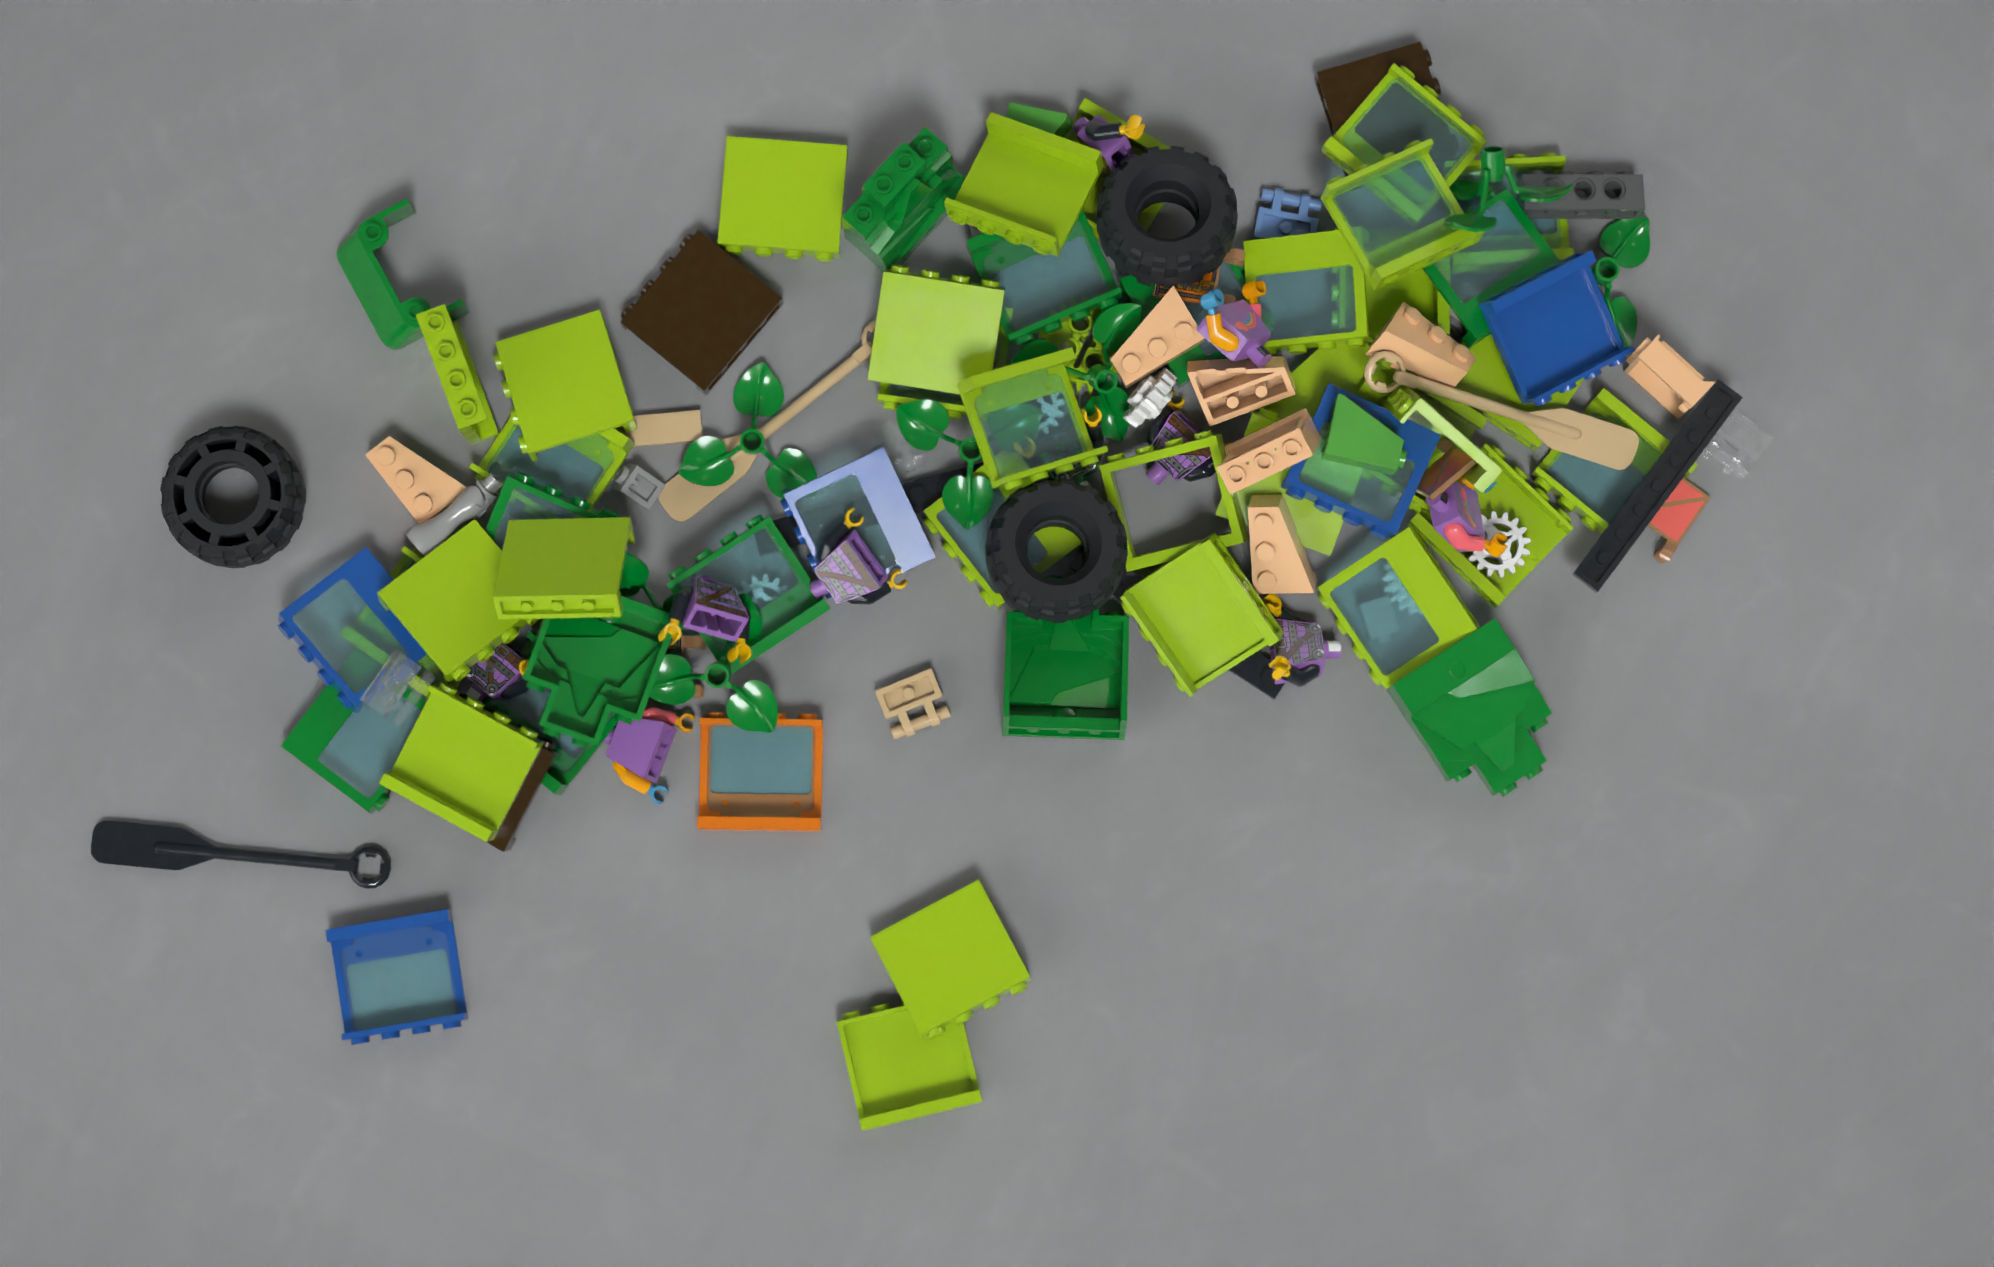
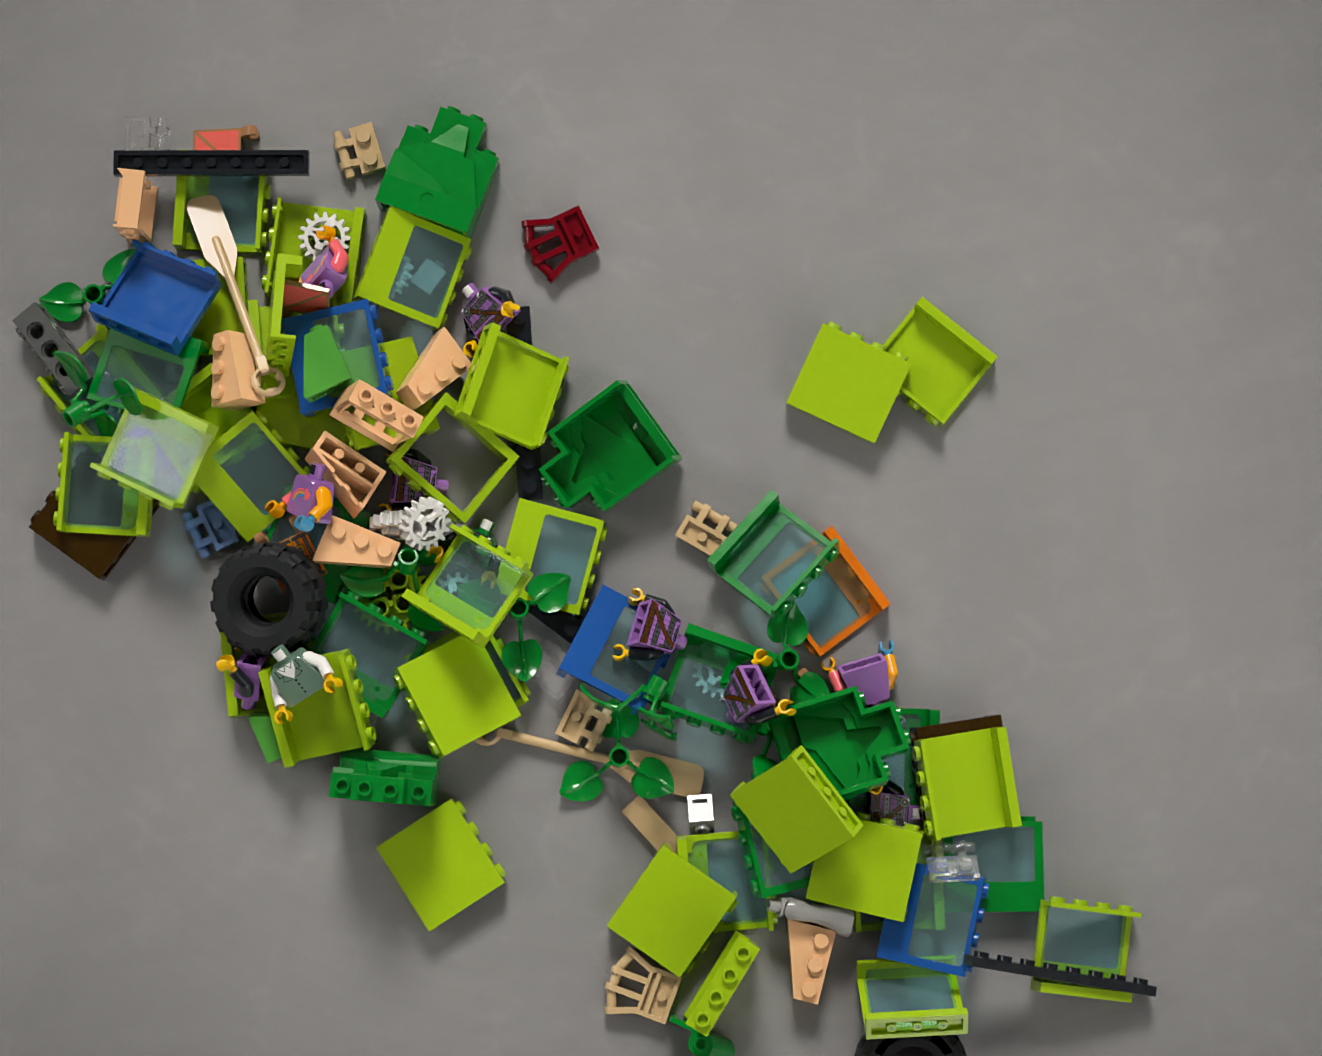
camera: 130 degrees left, 0 degrees up
(178, 849) = (1156, 926): black piece -> none
(214, 755) = (1083, 939): none -> clear light blue panel
(217, 703) = (1051, 971): none -> black plate
(297, 541) = (908, 1000): none -> panel
(398, 976) = (1127, 722): clear light blue panel -> none
(497, 311) = (656, 995): none -> tan plate
(701, 311) = (556, 860): dark brown panel -> none
(787, 520) = (654, 693): none -> green plant
(822, 434) = (577, 718): none -> tan plate
(833, 746) = (772, 556): none -> panel
(1065, 506) = (506, 495): black tyre -> none
(1066, 184) = (298, 677): none -> torso
(1127, 422) = (424, 523): none -> white gear
(1314, 798) = (573, 233): none -> dark red plate
(1562, 657) = (366, 148): none -> tan plate

